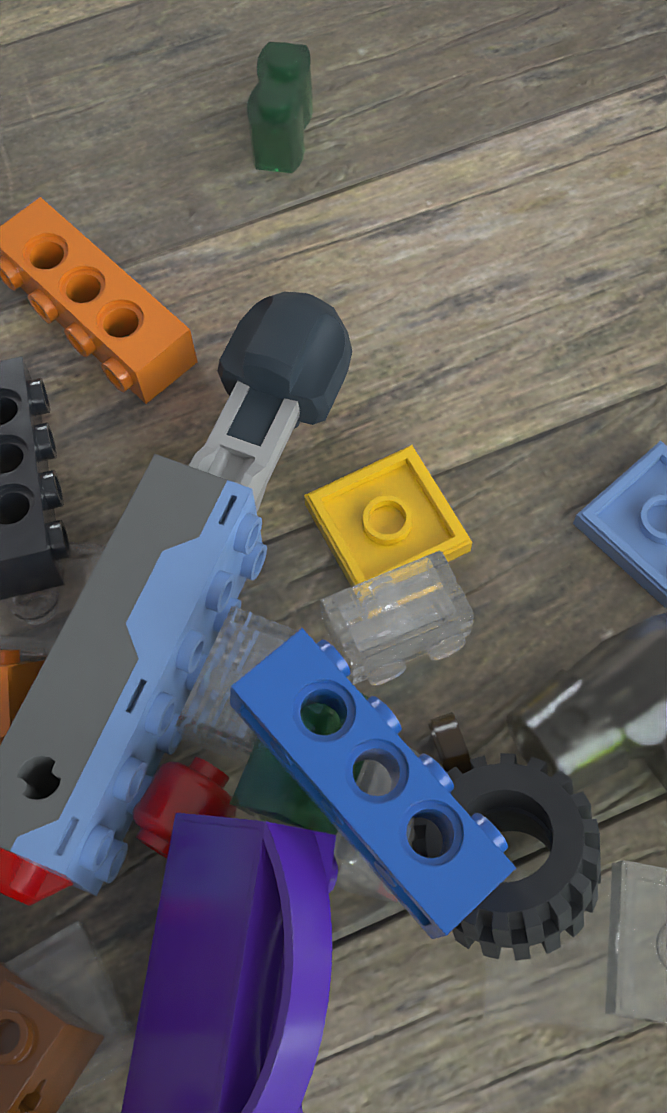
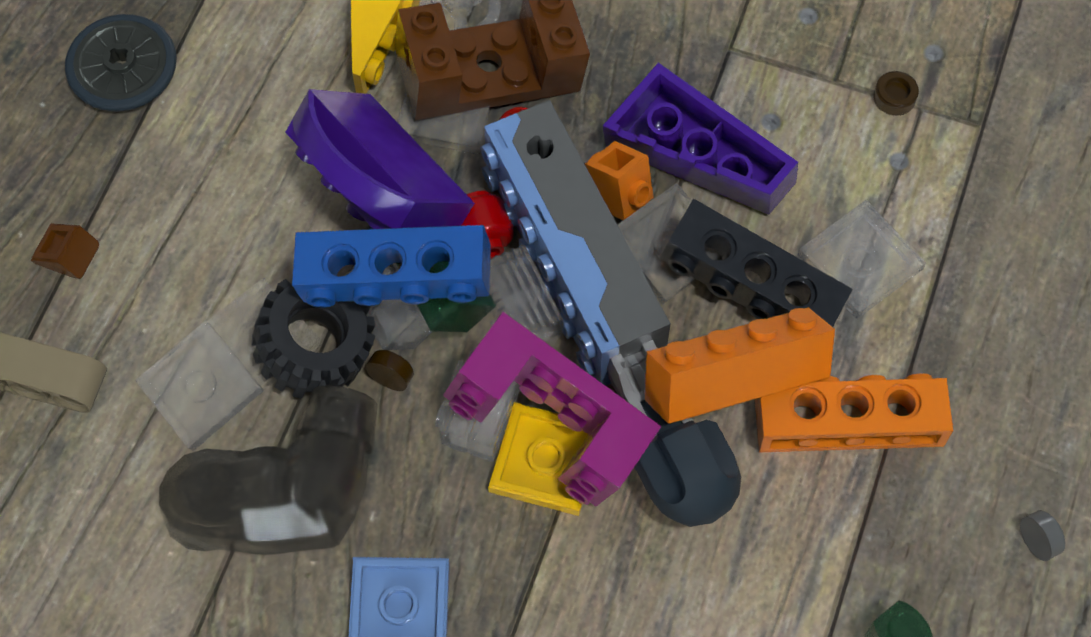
camera: 130 degrees right, 0 degrees up
(80, 101) = (1042, 535): none -> dark grey tile
(143, 376) = (738, 364): none -> orange brick
(376, 559) = (614, 427): none -> magenta plate

